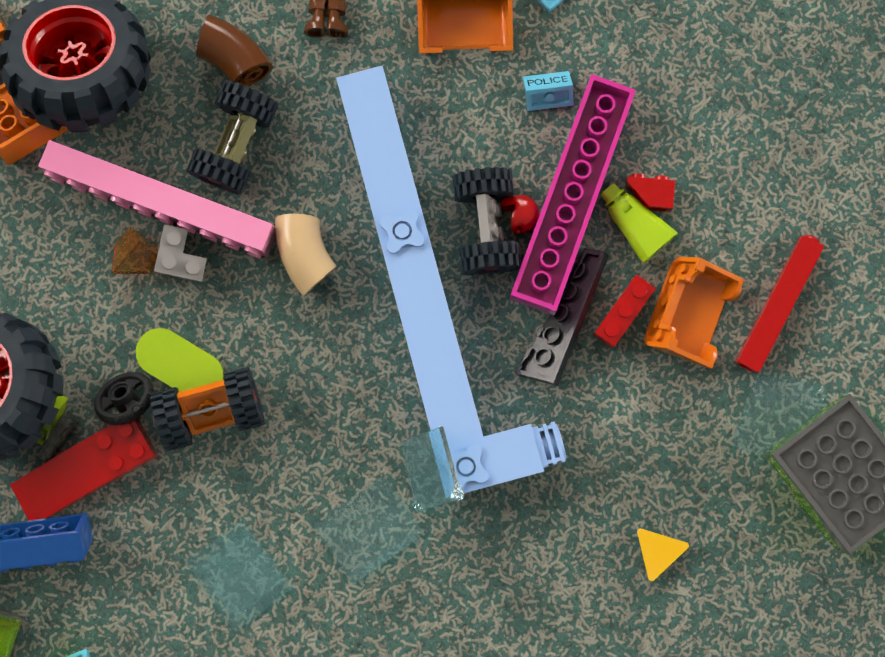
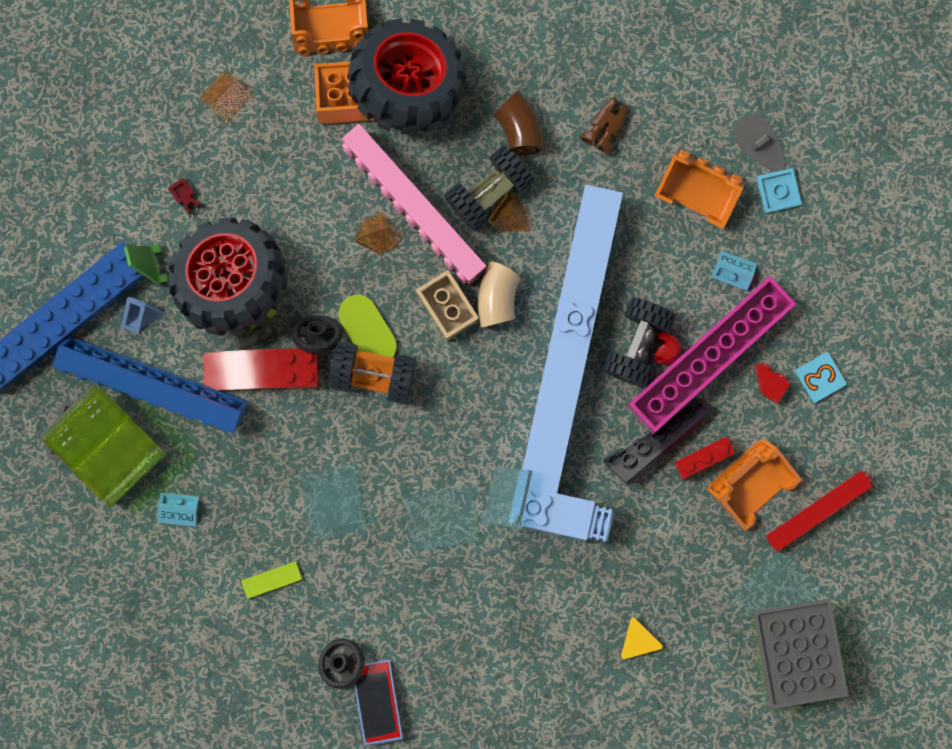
camera: 25 degrees right, 0 degrees up
(172, 260) = (401, 251): light grey brick -> none
(253, 290) = (447, 305): none -> tan brick
(272, 157) = (510, 215): none -> clear orange slope
(638, 224) = (747, 399): lime piece -> none
(703, 158) = (820, 377): none -> medium azure tile

